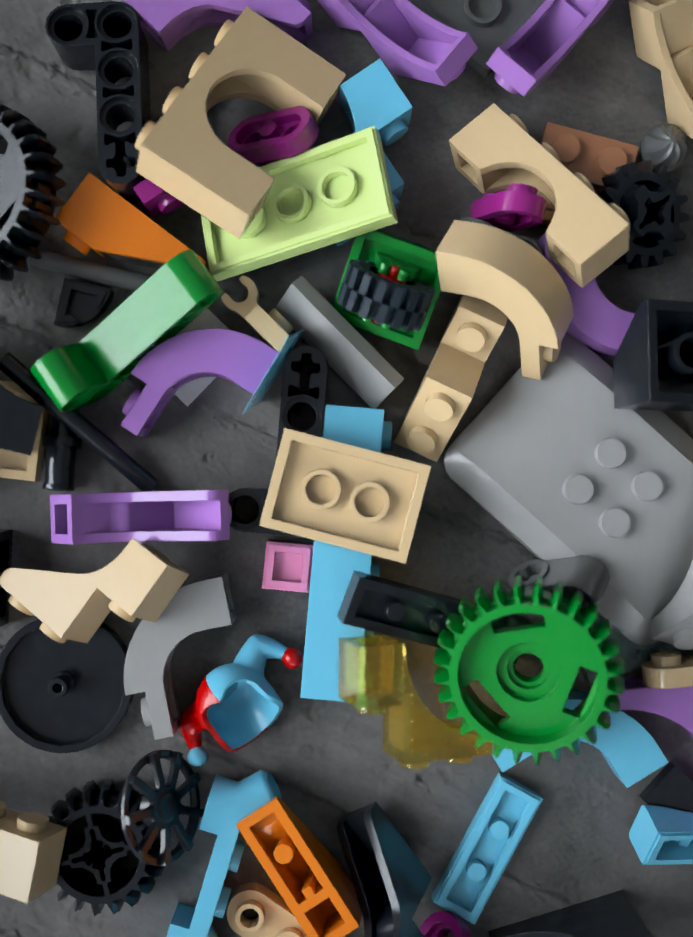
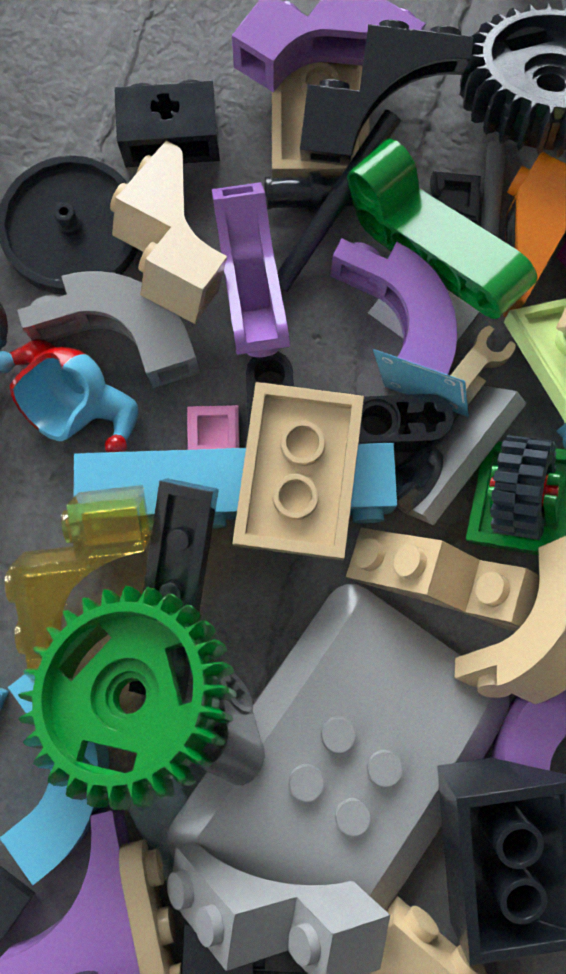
camera: 85 degrees right, 10 degrees down
(354, 389) = (414, 473): none -> black tile

